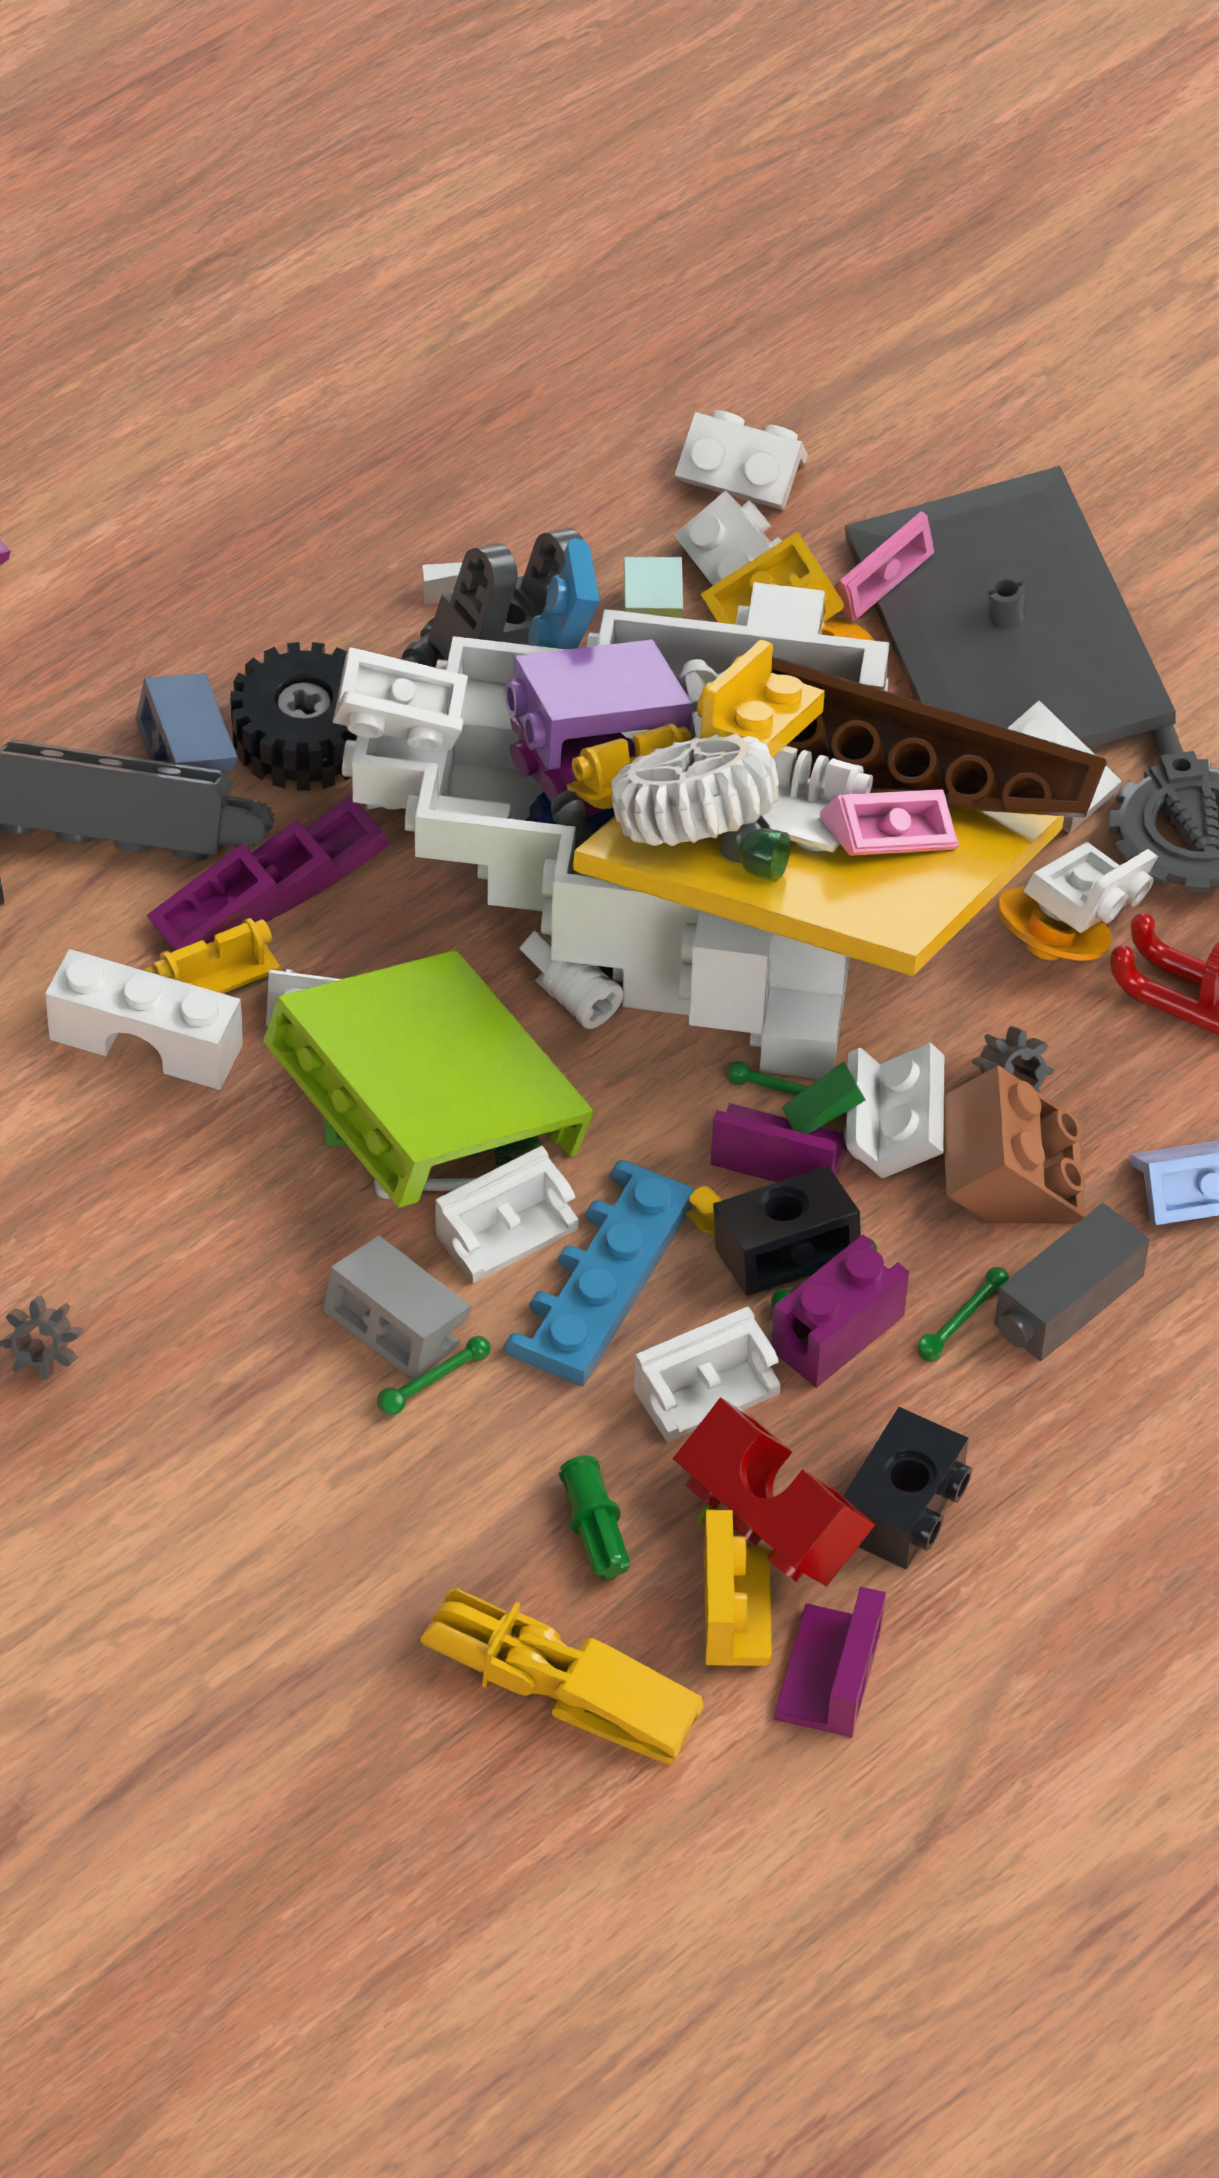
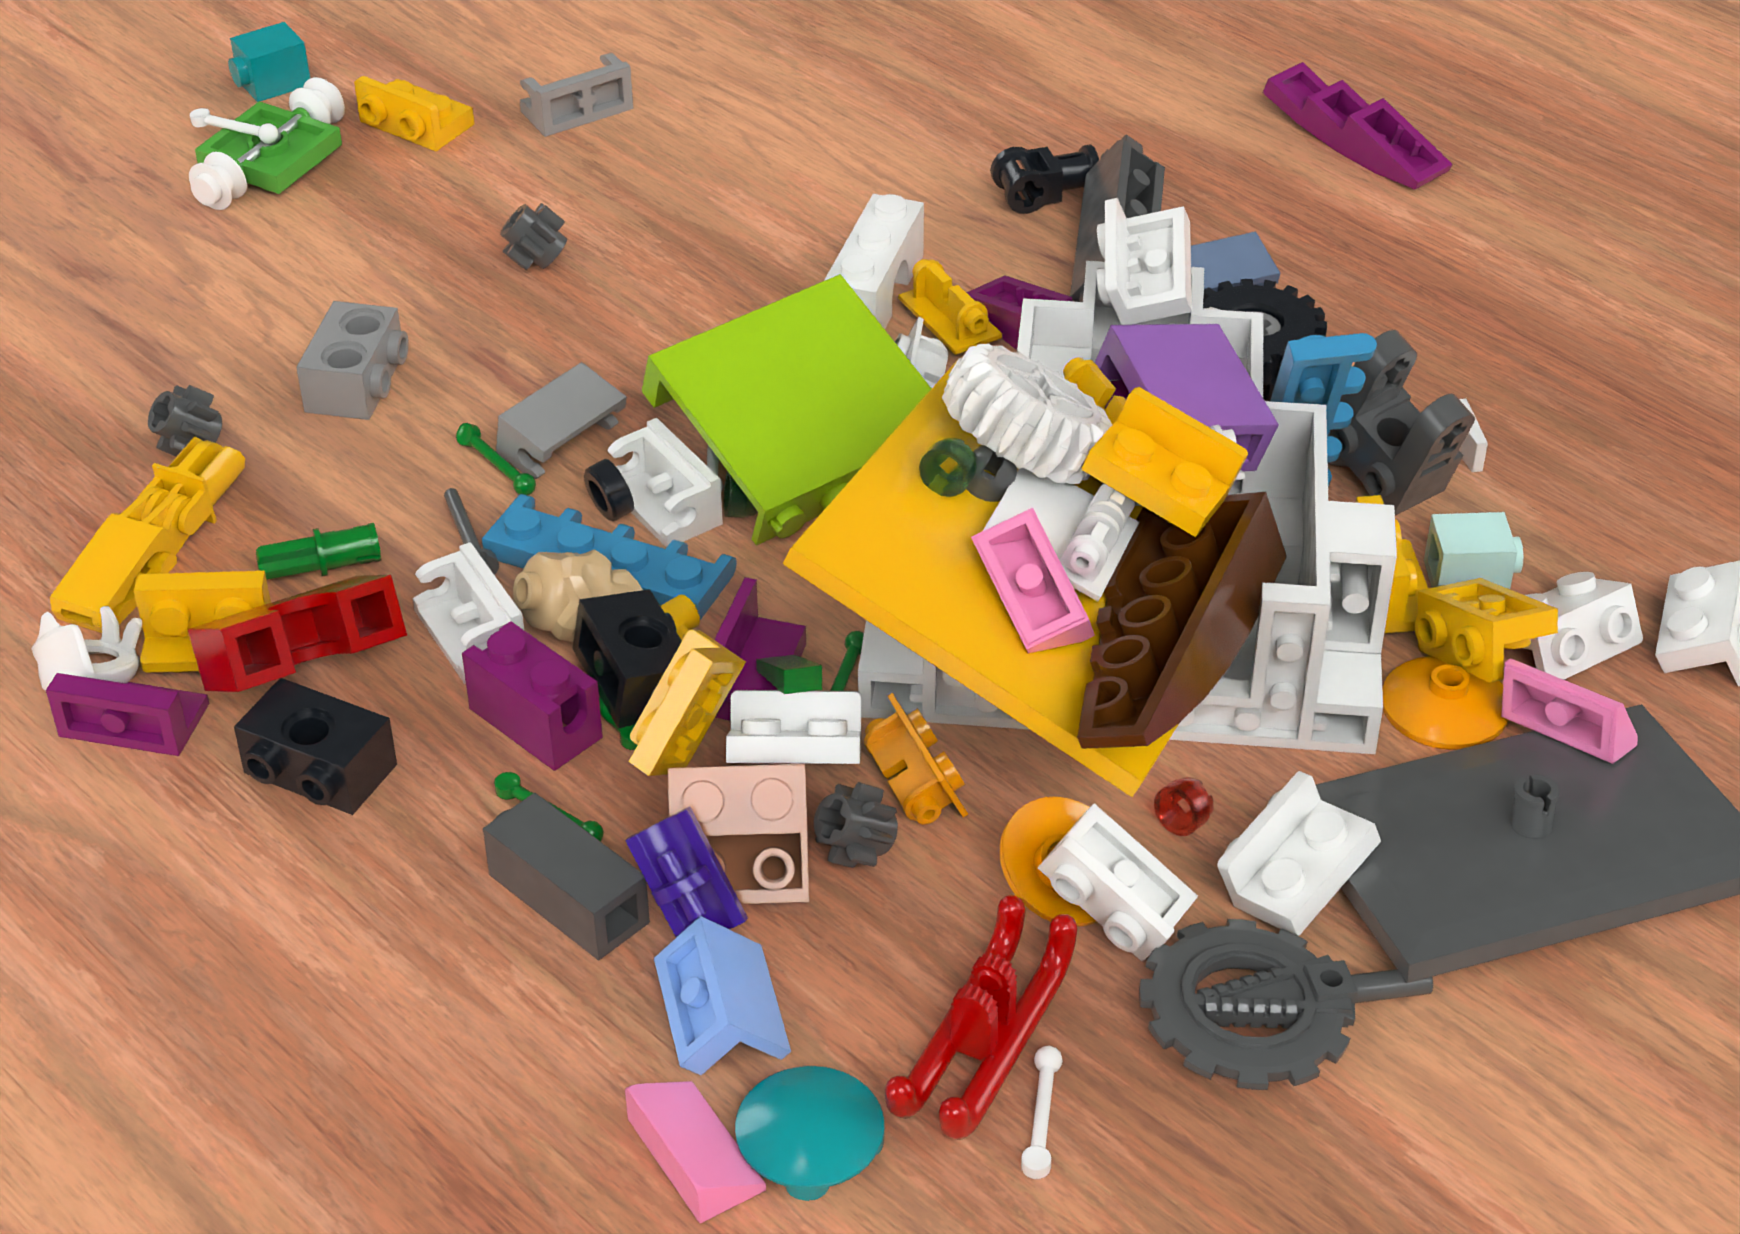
camera: 90 degrees right, 10 degrees down
(261, 1519) = (351, 360): none -> light grey brick
(395, 1651) = (183, 416): none -> dark grey gear
(514, 1261) = (608, 490): none -> black tile
(562, 1393) = (466, 530): none -> dark grey piece
(694, 1279) = (554, 583): none -> tan head
(782, 1718) = (66, 652): none -> white piece
(890, 1170) = (684, 704): none -> yellow bracket
(940, 1017) = (929, 780): none -> light orange hinge
(1103, 1172) = (685, 873): none -> dark purple hips

